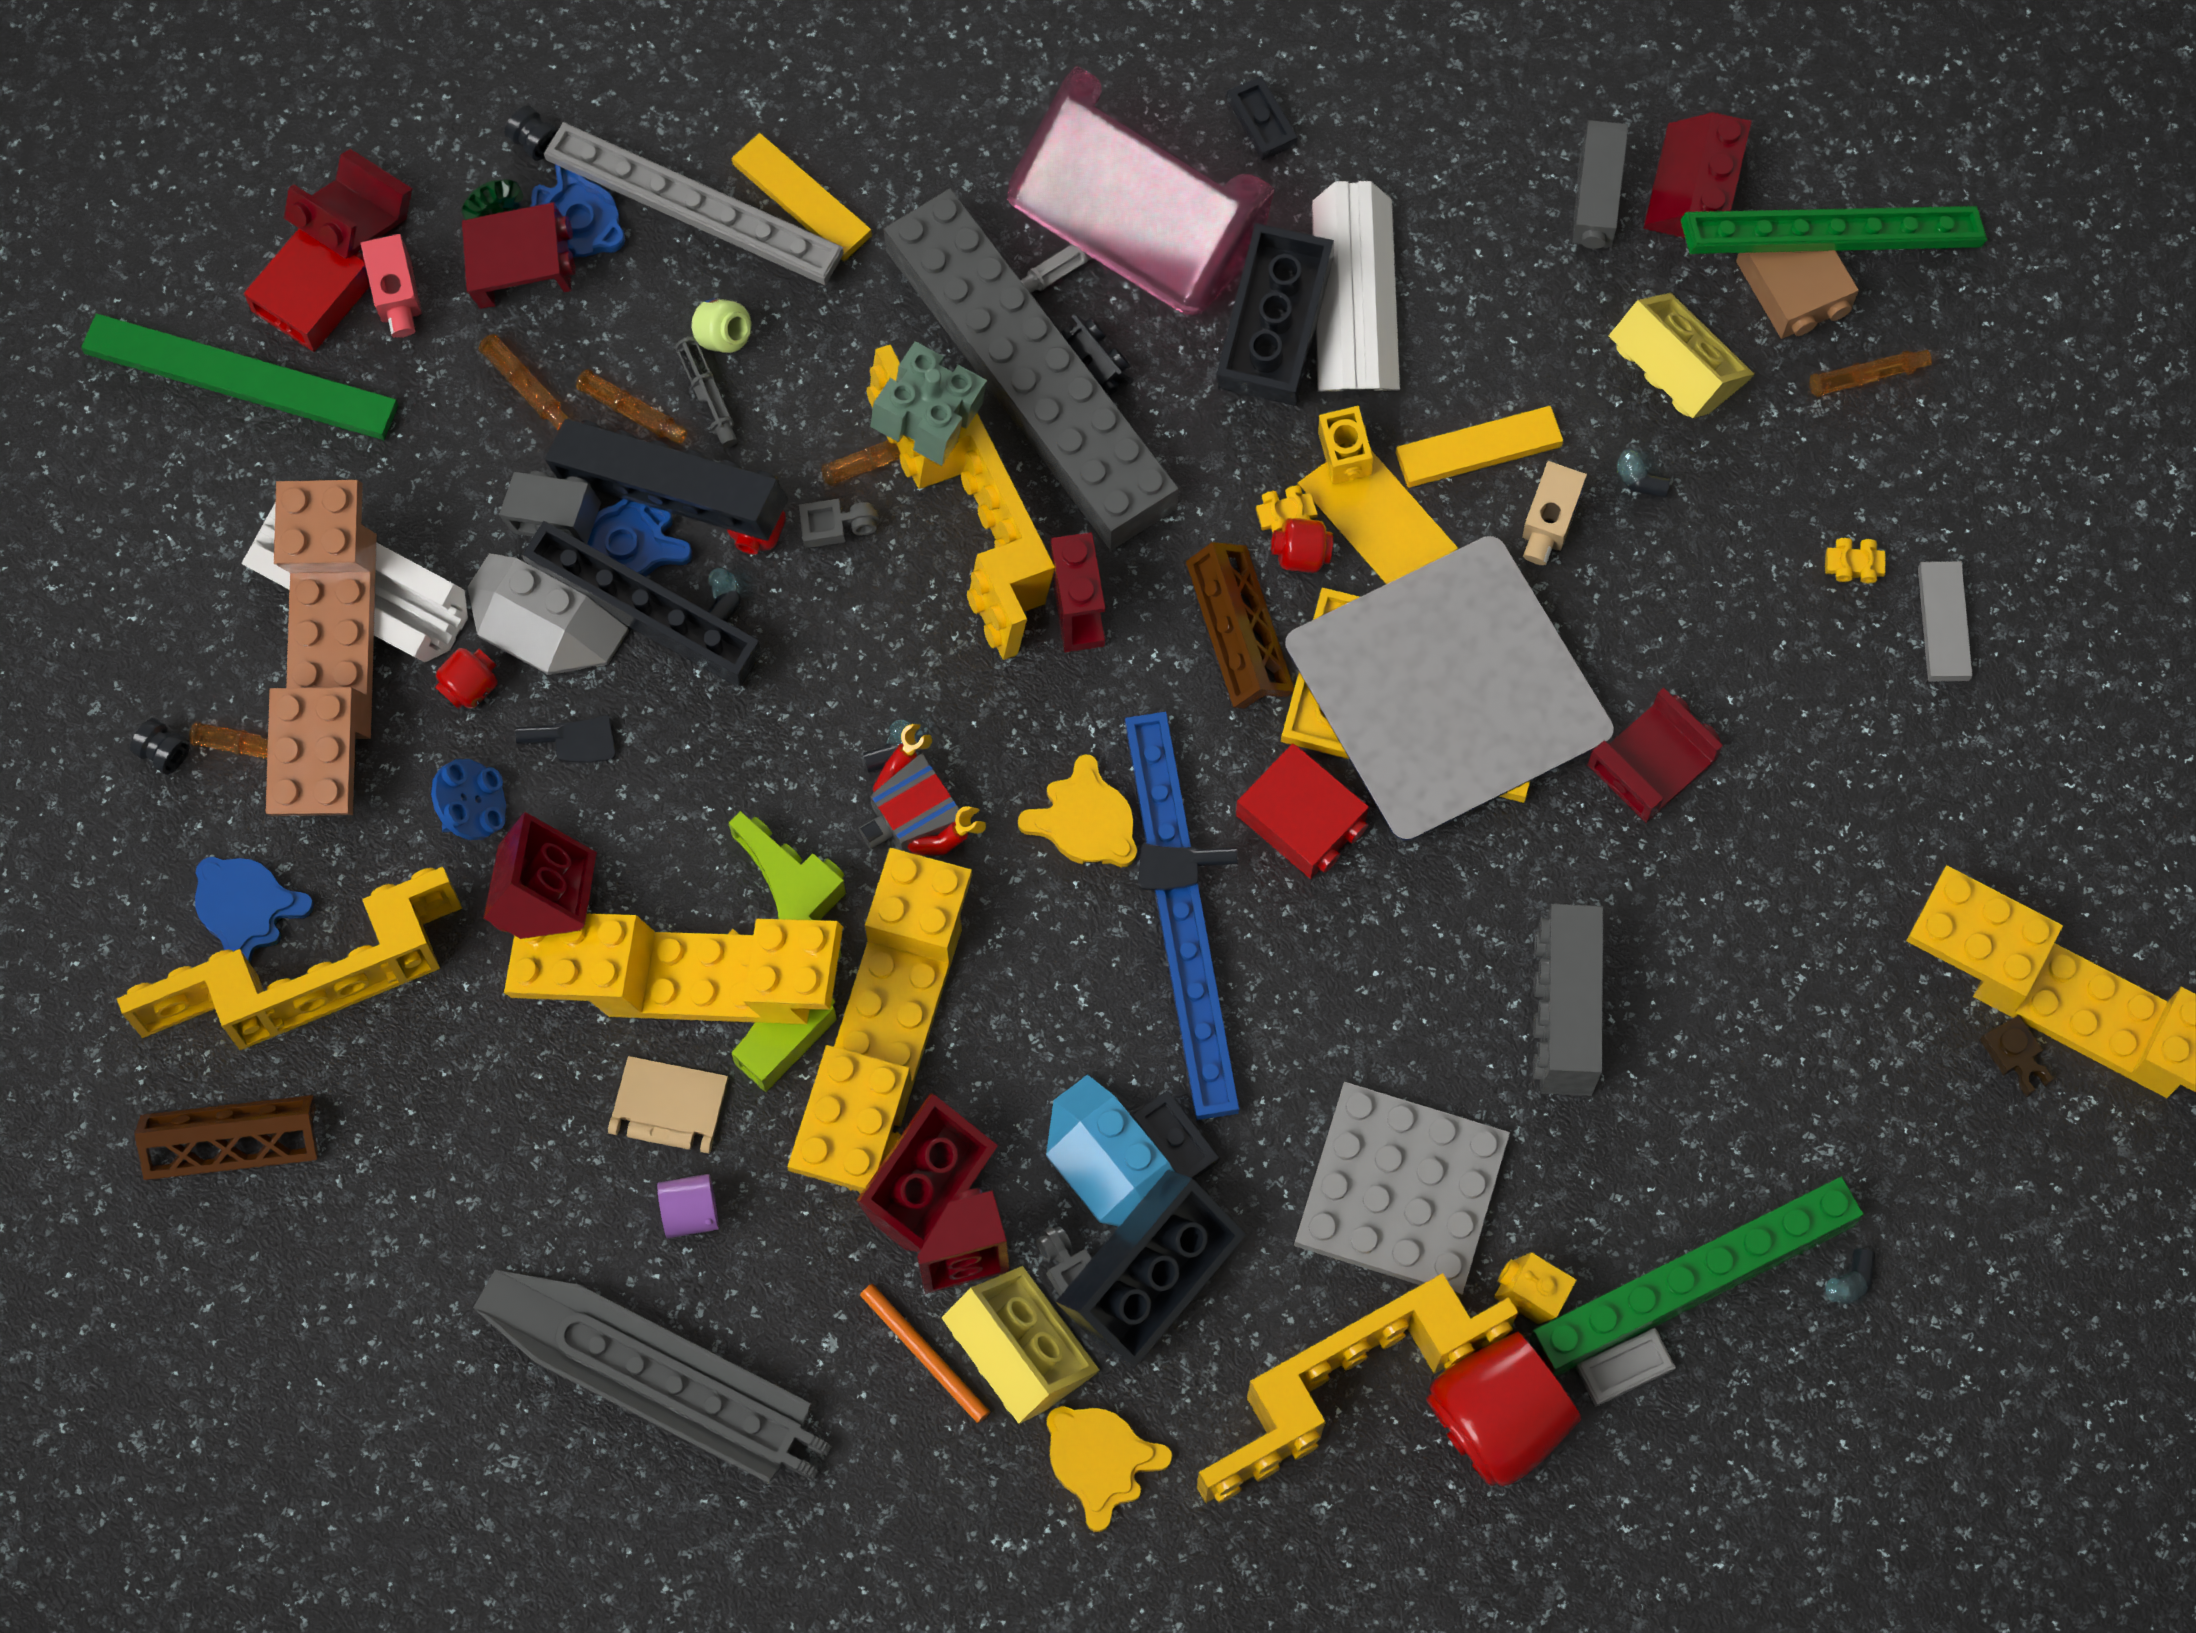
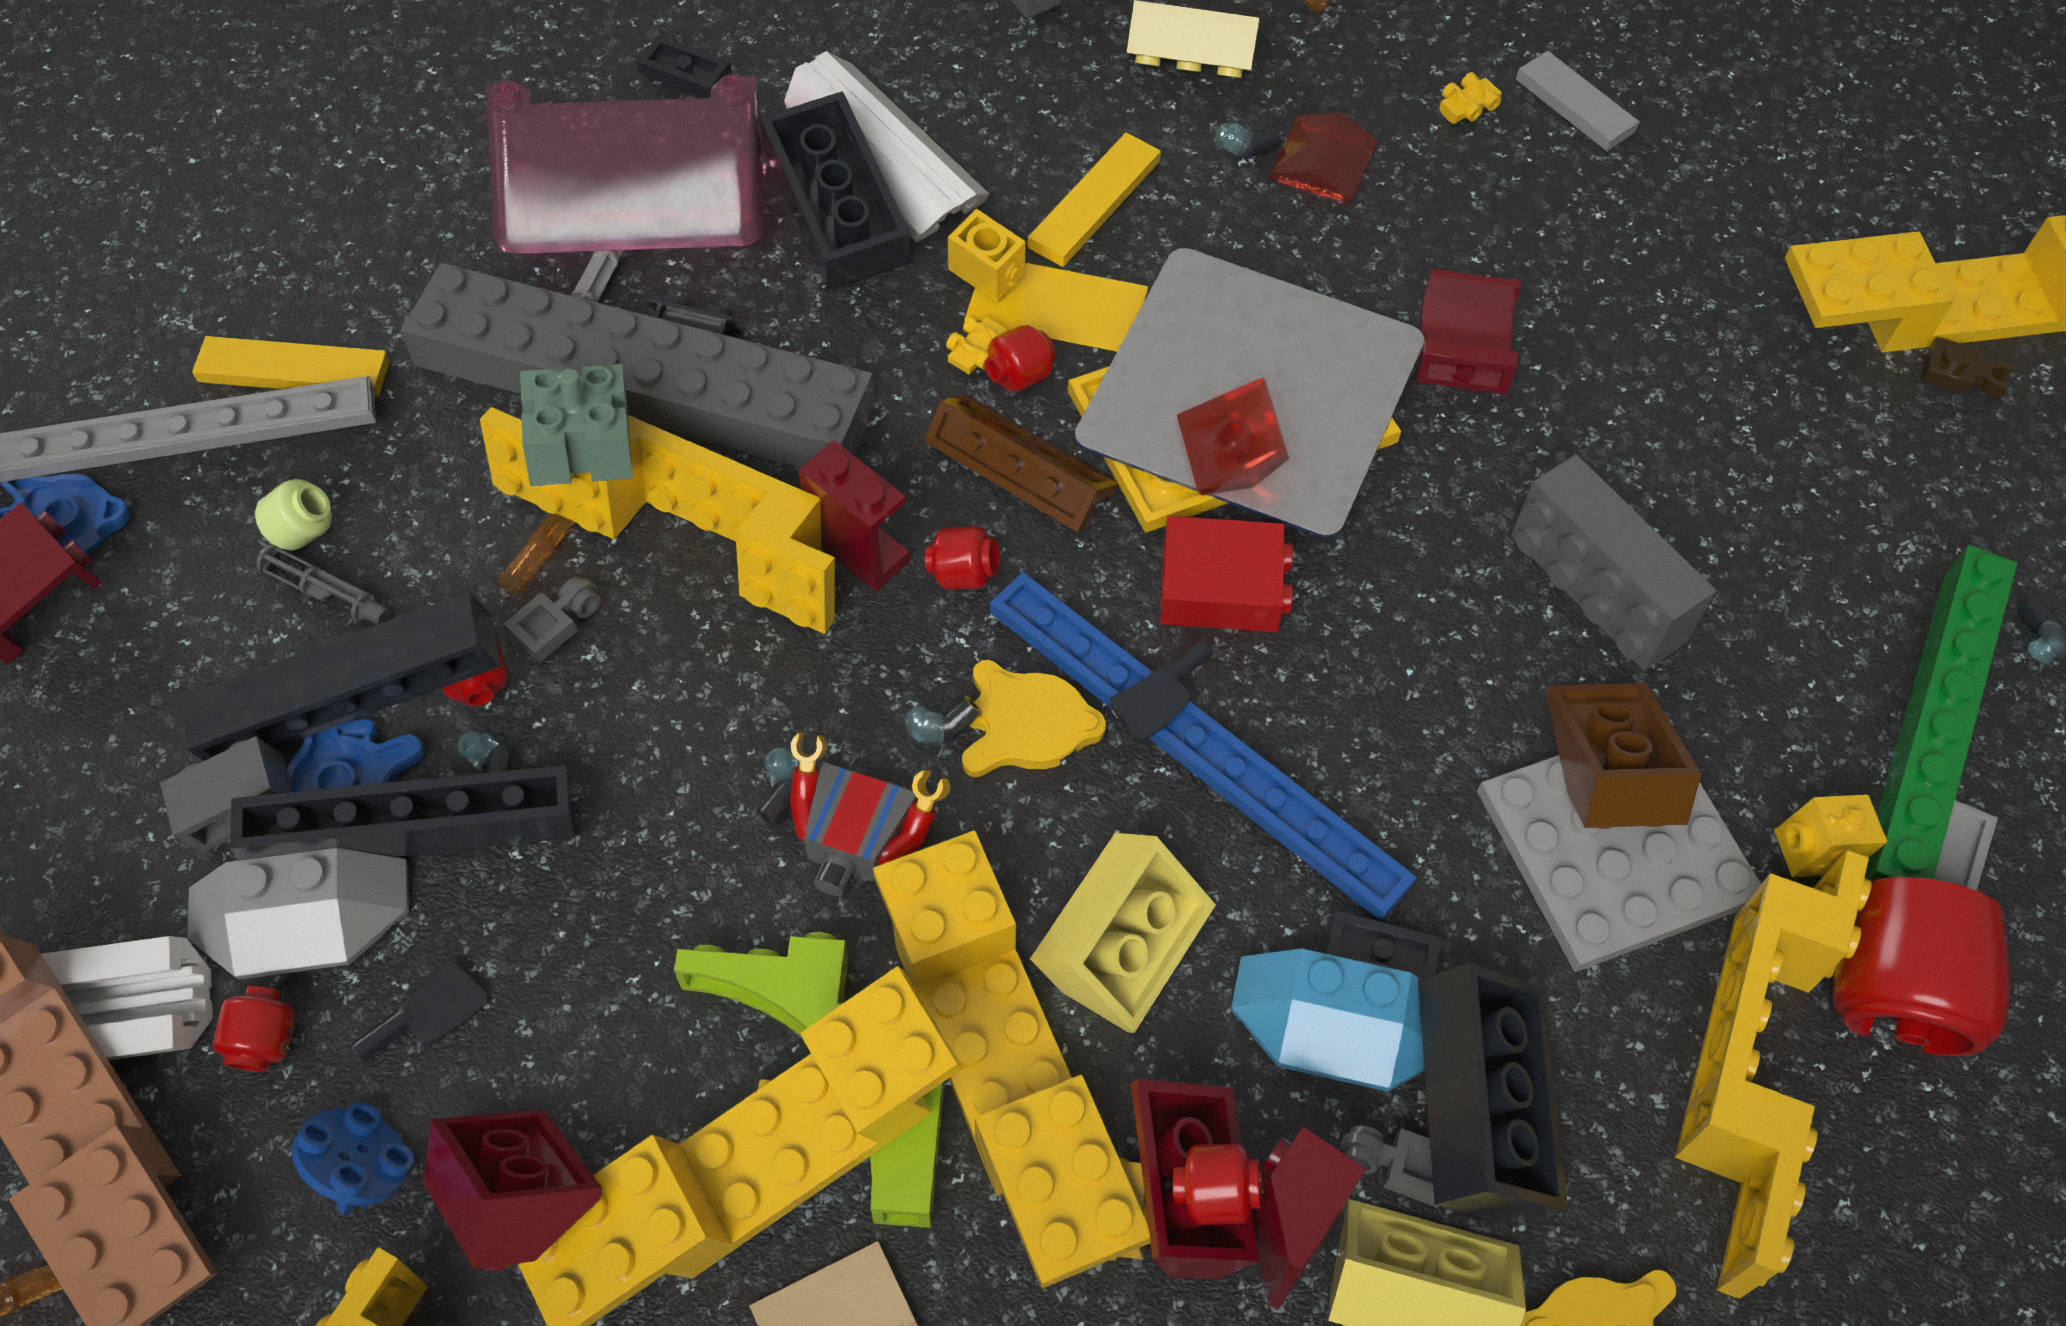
camera: 40 degrees left, 10 degrees down
(522, 380) = (98, 696): clear orange piece -> none
(629, 406) = (242, 650): clear orange piece -> none
(924, 1187) = (1218, 1184): none -> red head
(1022, 782) = (941, 727): none -> arm
(1025, 1003) = (1124, 930): none -> light yellow slope
(1135, 672) = (963, 558): none -> red head
(1386, 718) = (1233, 439): none -> clear red slope
(1441, 1129) = (1621, 756): none -> reddish brown slope
(1554, 501) = (1208, 196): tan torso -> none
(1692, 532) = (1325, 156): none -> clear red slope

